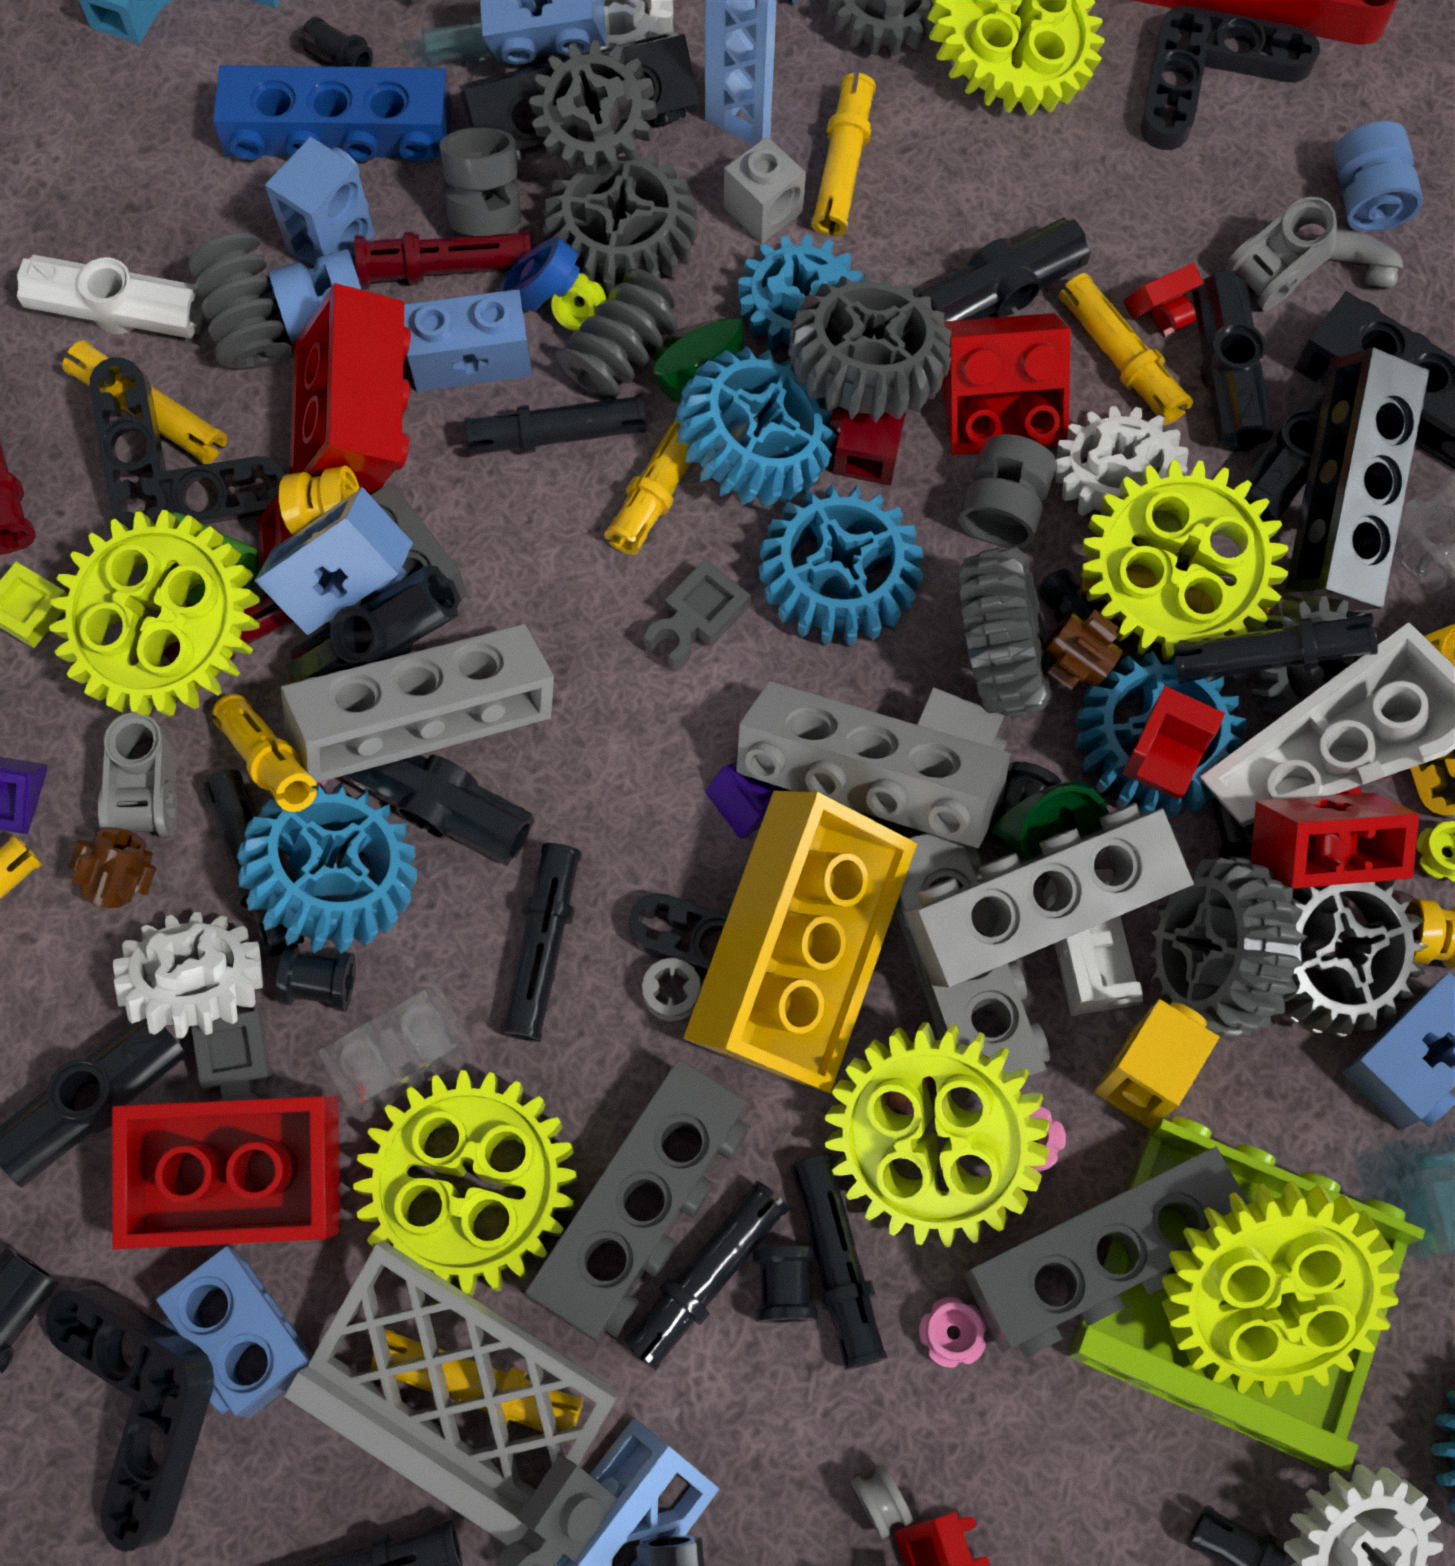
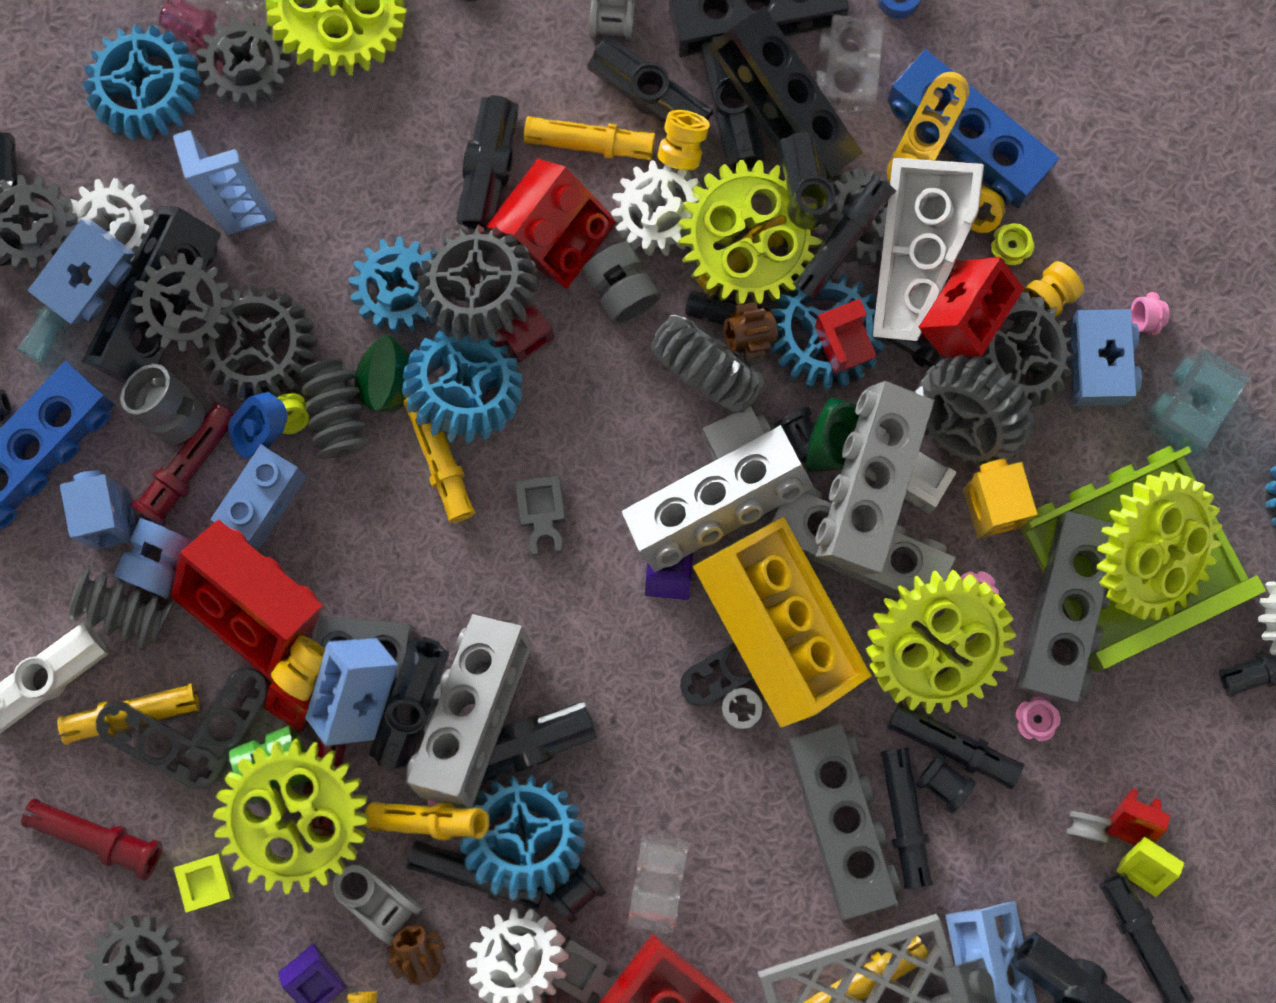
camera: 45 degrees left, 10 degrees up
(483, 1122) = (729, 867): neon yellow gear -> none
(554, 425) = (350, 499): black pin -> none
(558, 869) = (624, 714): black pin -> none
(764, 189) = (312, 246): light grey brick -> none
(847, 134) = (315, 164): yellow pin -> none
(878, 540) = (563, 403): dark azure gear -> none
(1167, 299) = (581, 89): red tile -> none
(1212, 421) = (683, 139): none -> yellow wheel
(1293, 556) = (805, 178): none -> black piece

